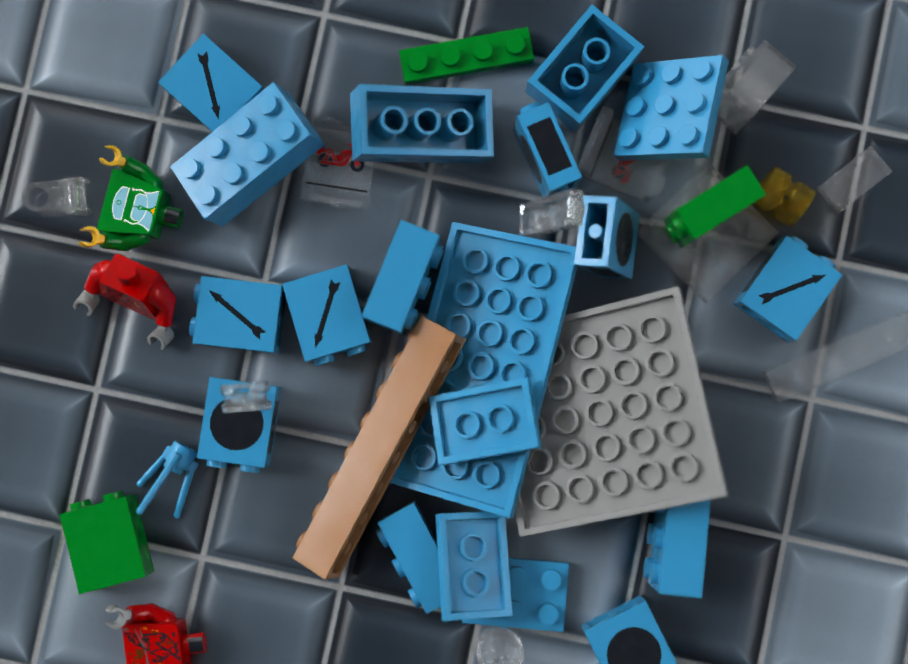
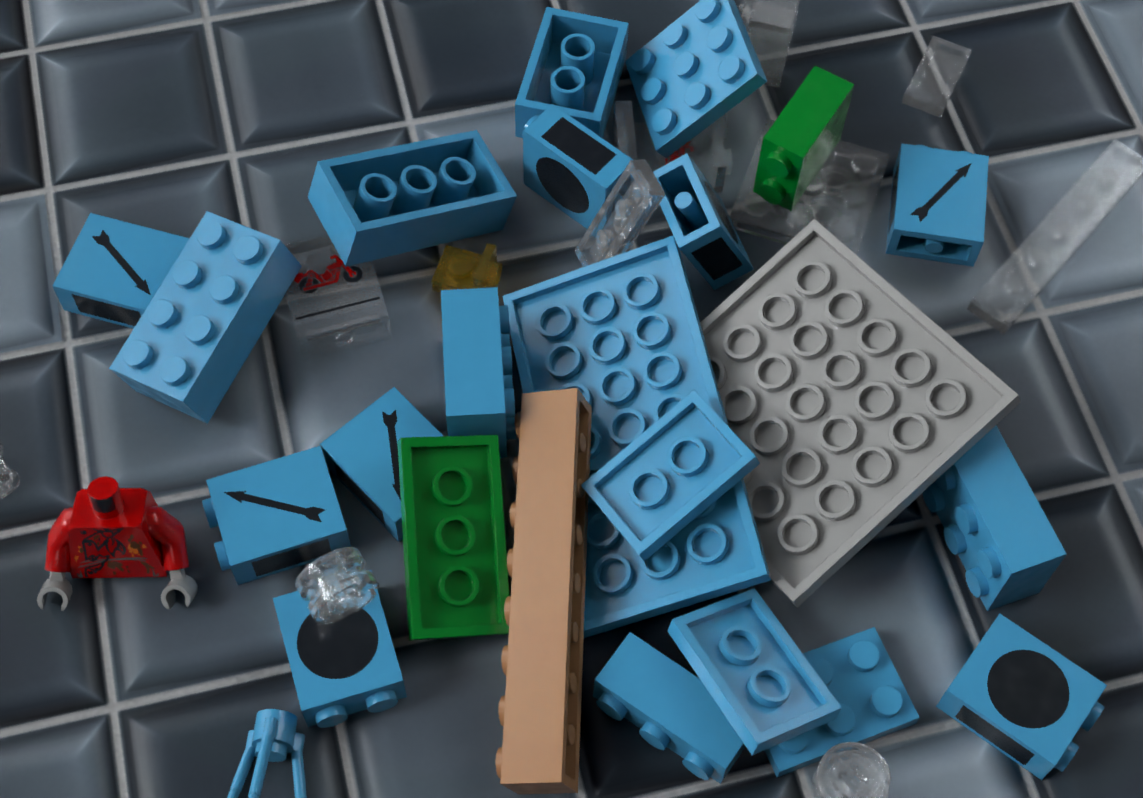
camera: 30 degrees left, 25 degrees down
(132, 207) = (72, 441): green torso -> none
(336, 387) = (453, 536): none -> green plate
(439, 189) = (467, 269): none -> clear yellow bracket
(466, 56) = (445, 115): green plate -> none
(776, 185) = (891, 117): clear yellow wheel -> none

